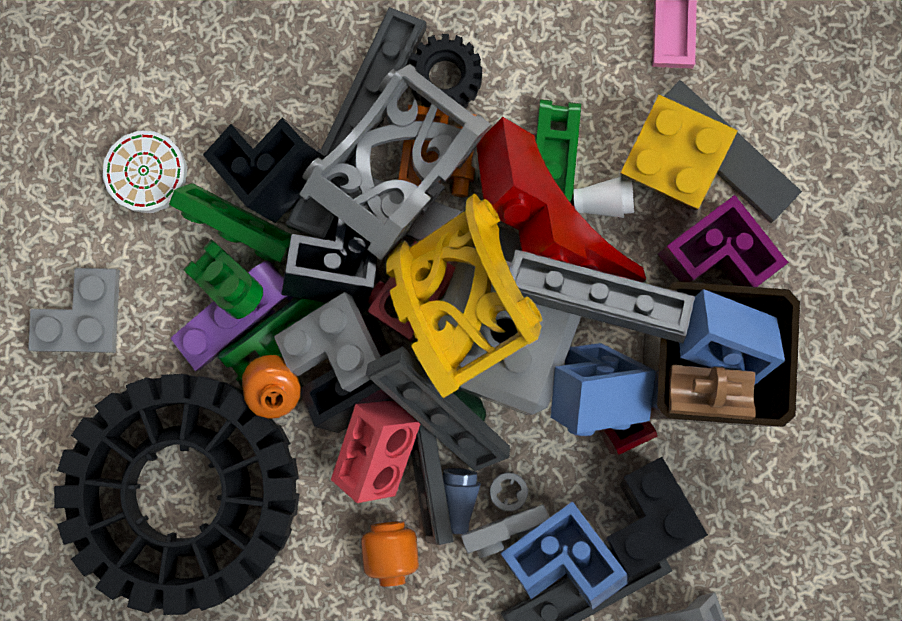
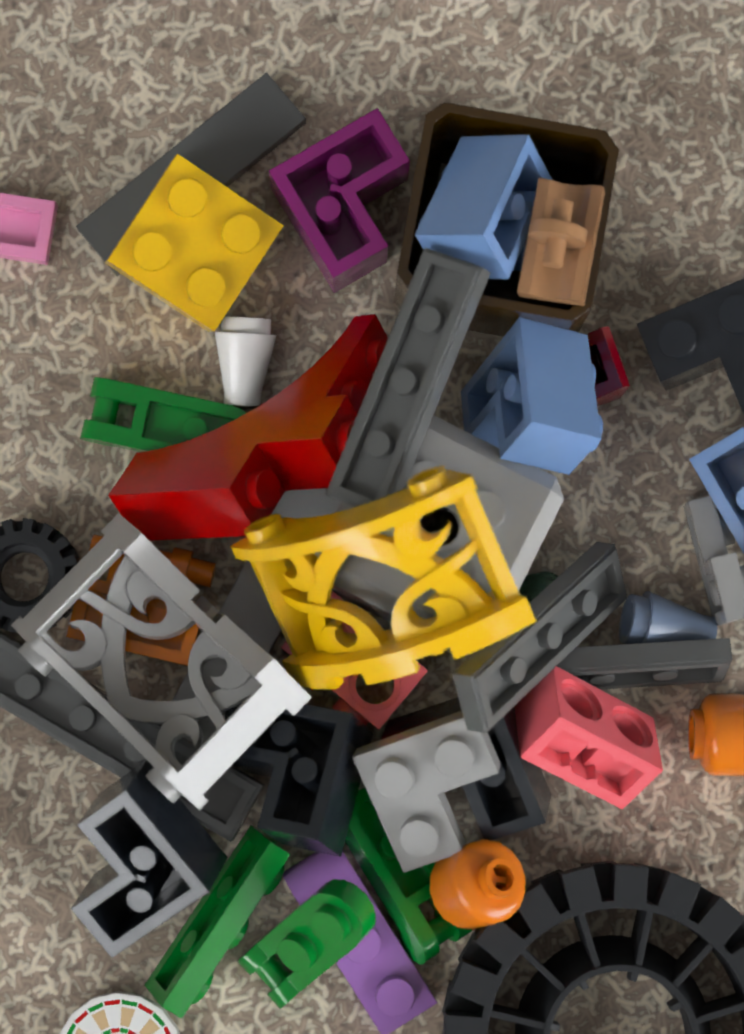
camera: 90 degrees left, 0 degrees up
(521, 494) = (655, 569): light grey bush -> none

